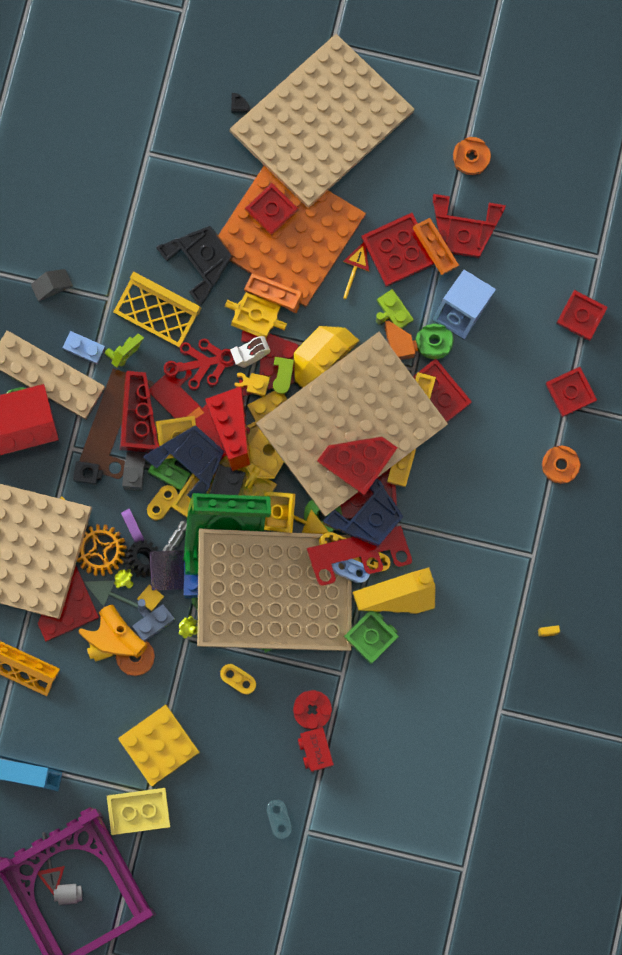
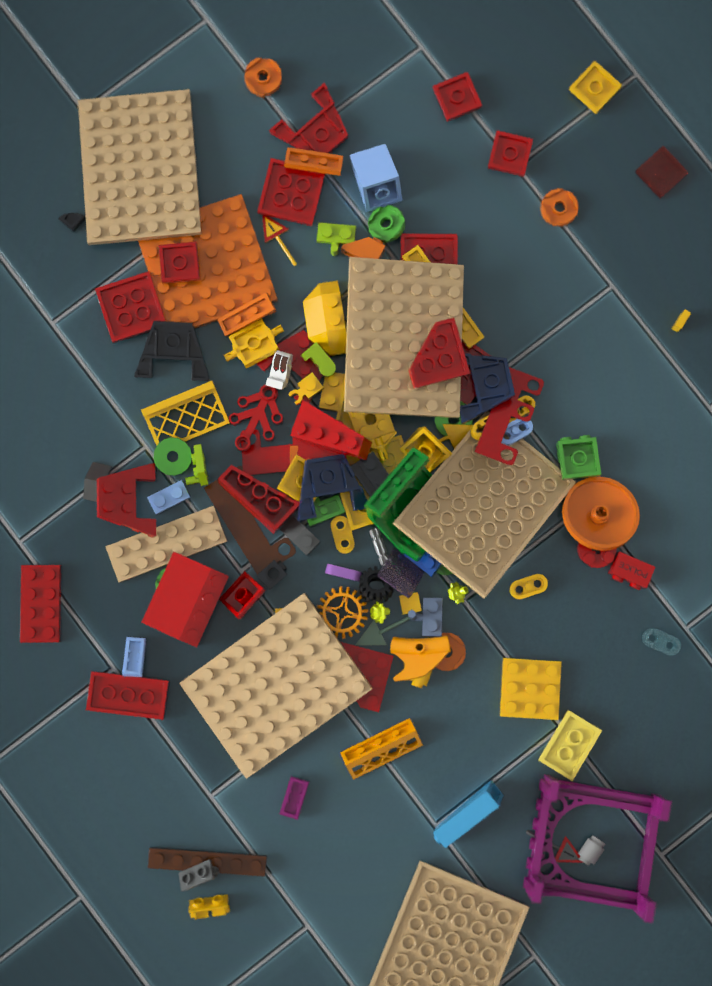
camera: 50 degrees left, 5 degrees up
(50, 309) = (118, 498): none -> red wing
(52, 464) = (242, 595): none -> red slope
(107, 320) = (167, 466): none -> bright green tile
(207, 200) = (130, 306): none -> red plate
(341, 688) = (600, 513): none -> orange dish
(405, 593) = (566, 406): yellow wedge -> none

